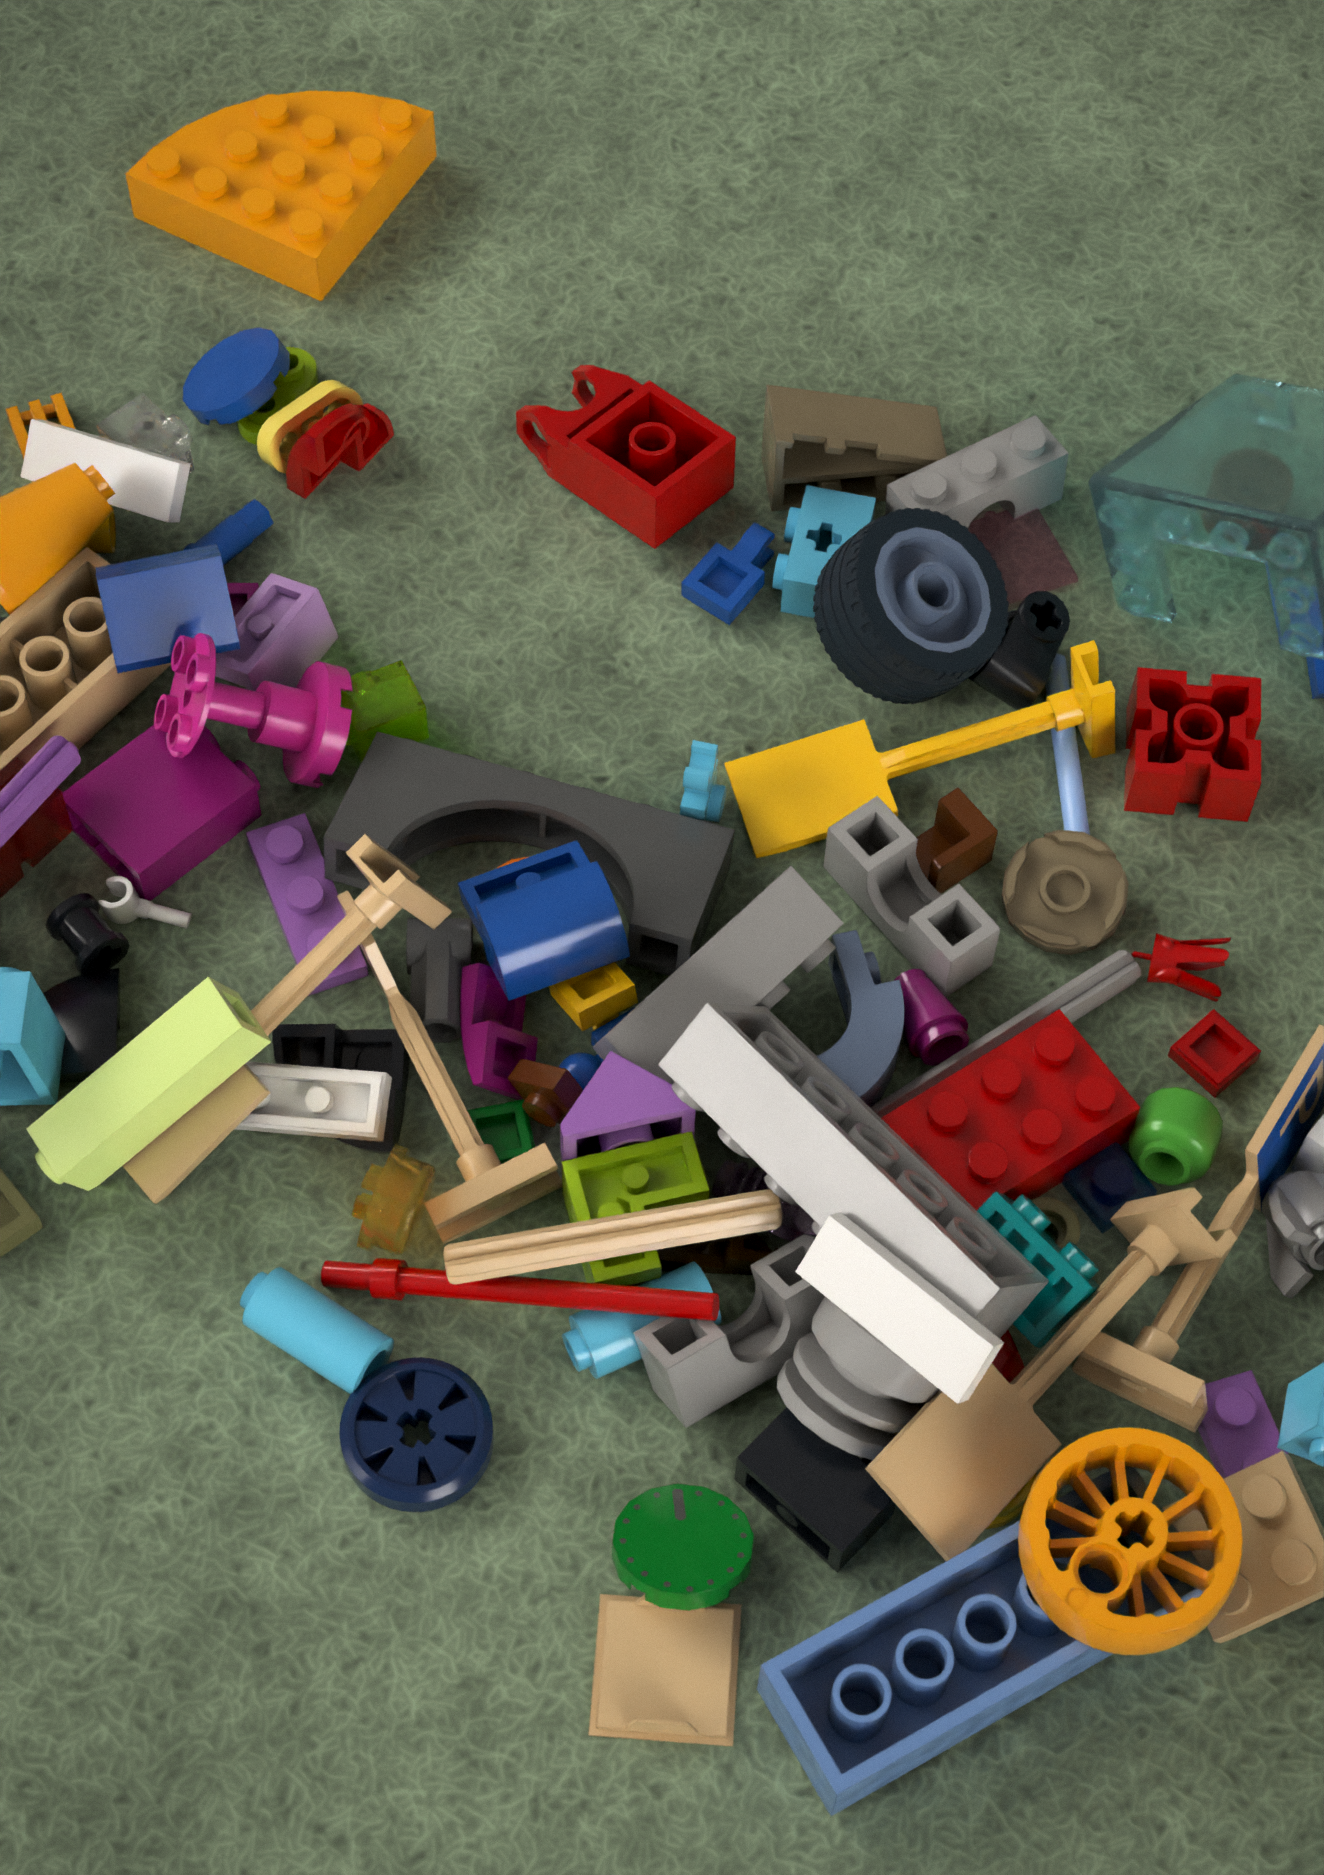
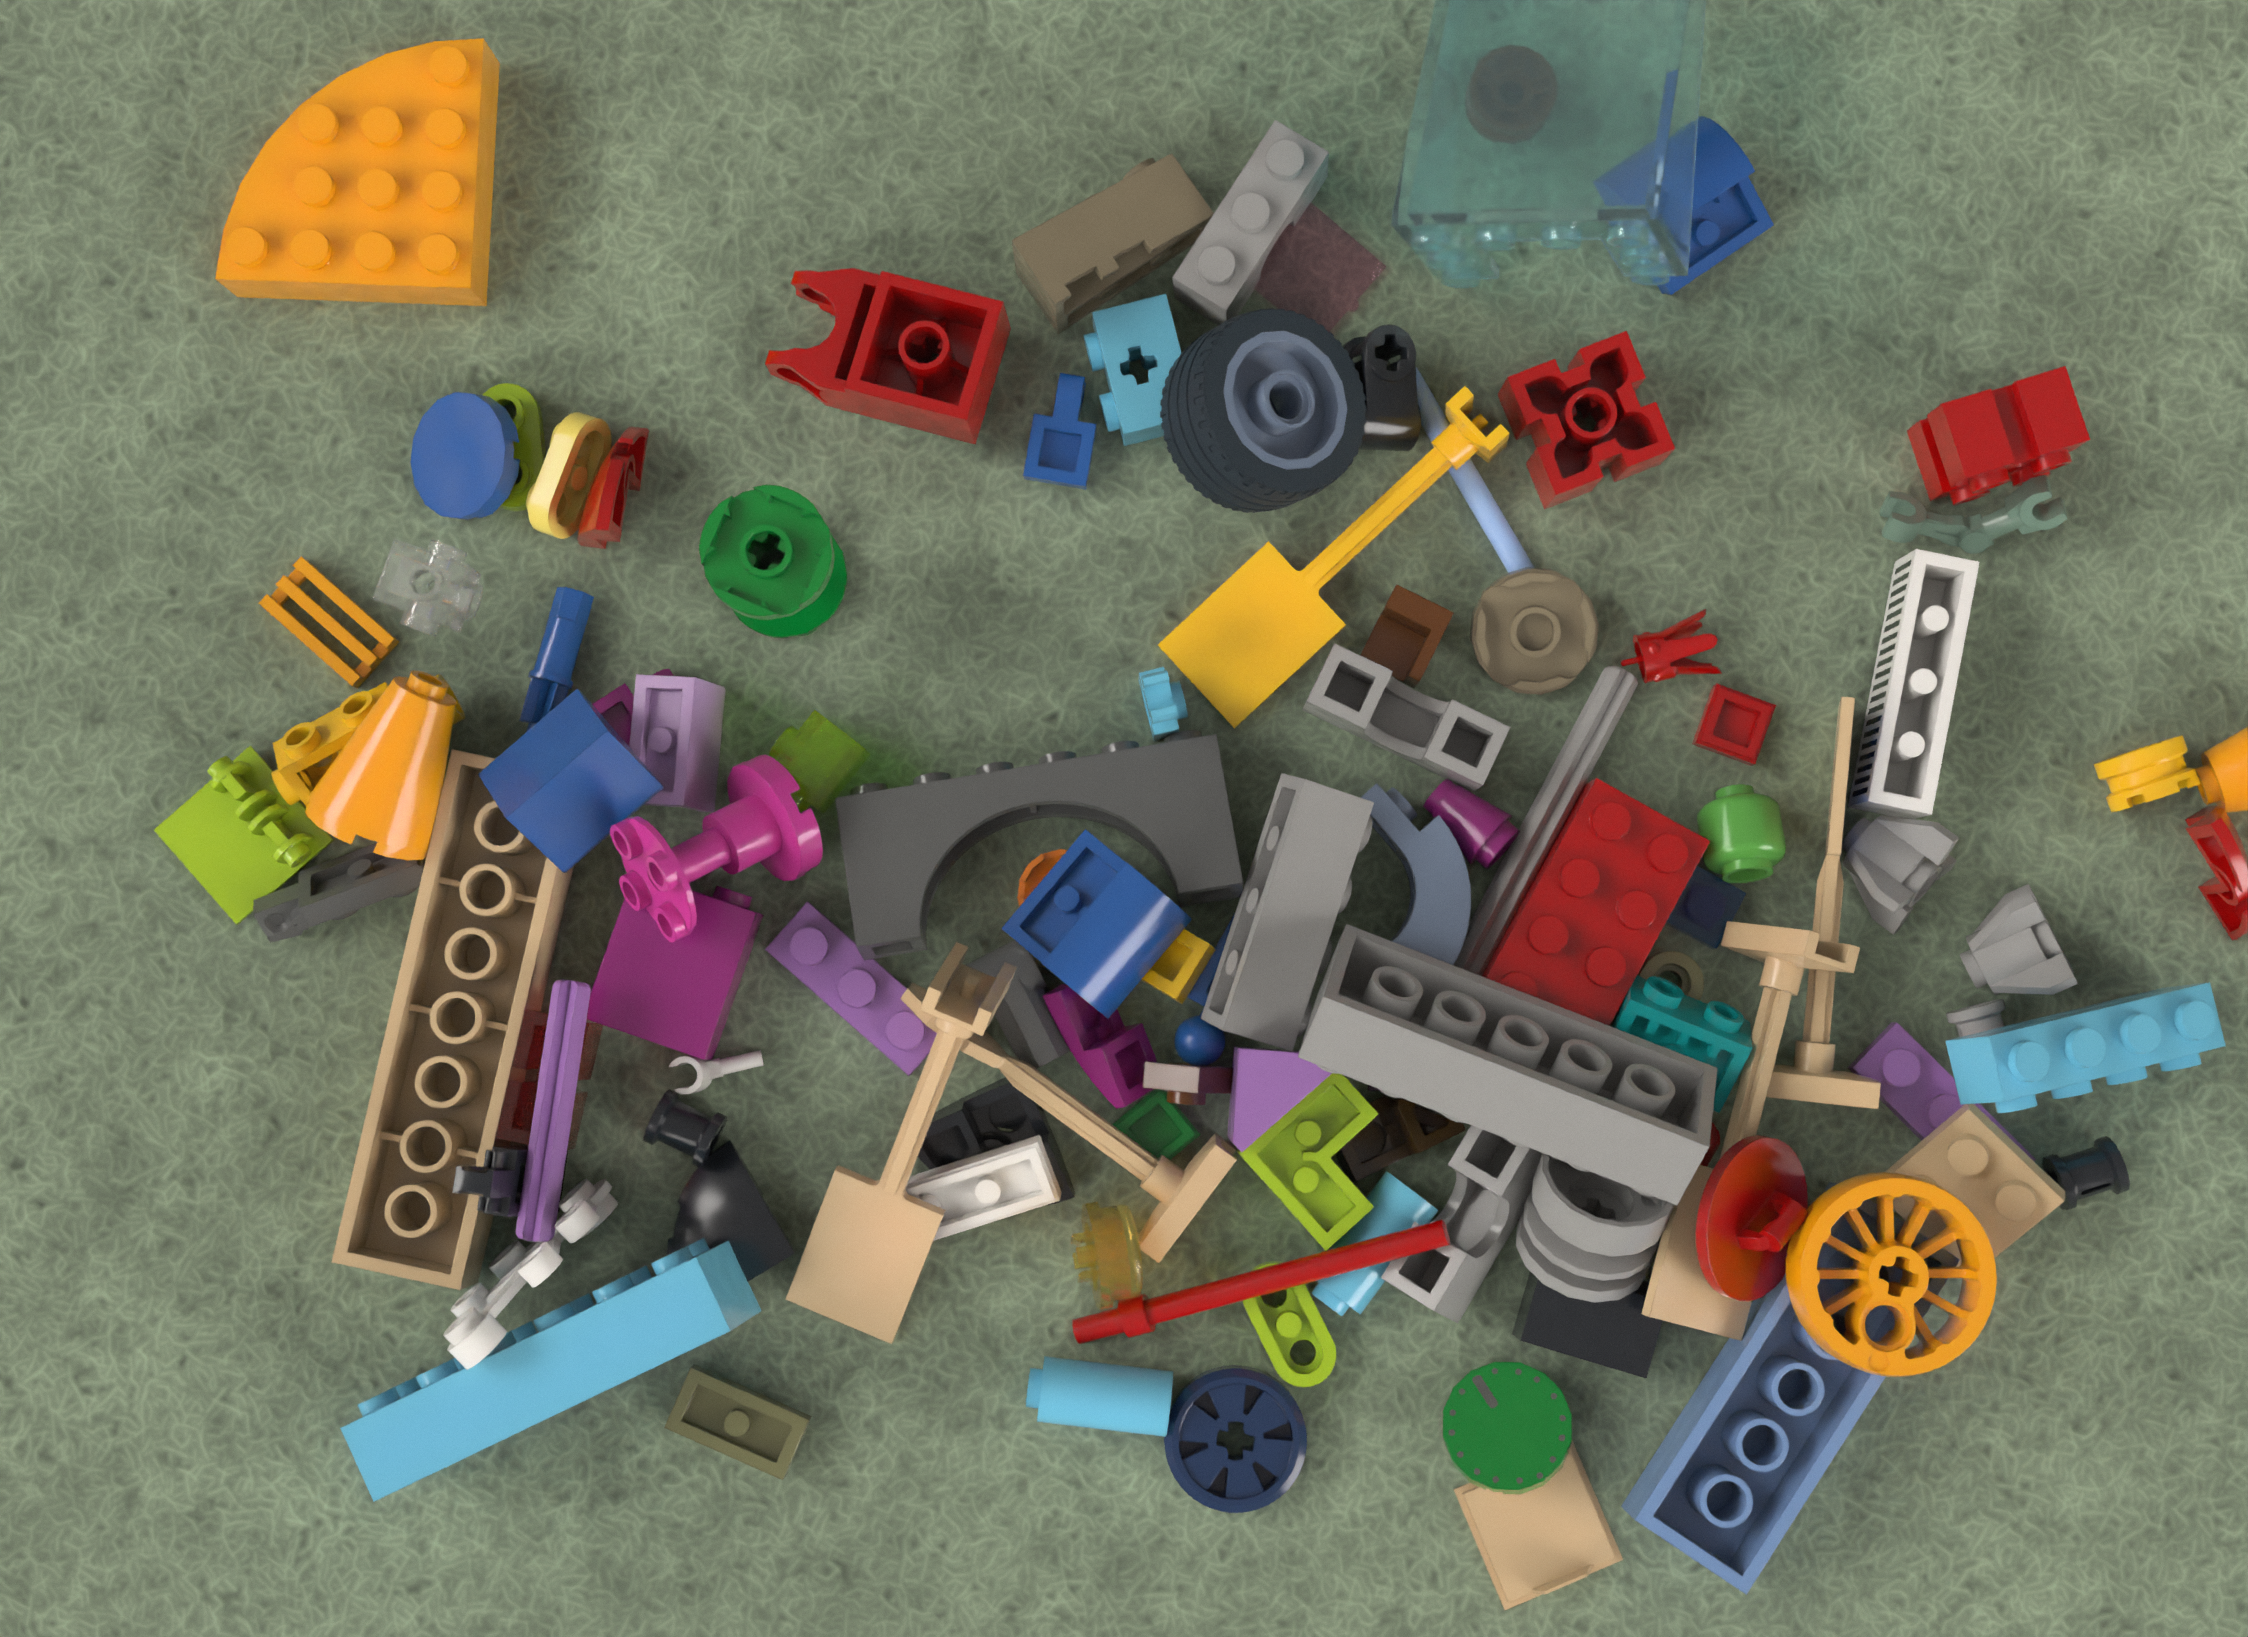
camera: 25 degrees left, 25 degrees up
(140, 478) = (398, 643): white tile -> none
(147, 1086) = (840, 1265): yellowish green brick -> none
(433, 513) = (773, 561): none -> green piece
(525, 1360) = (1287, 1323): none -> lime plate
(612, 1236) = (1319, 1212): tan axle -> none
(899, 1307) = (1623, 1191): white tile -> none
(1011, 1428) = (1748, 1217): none -> red shield

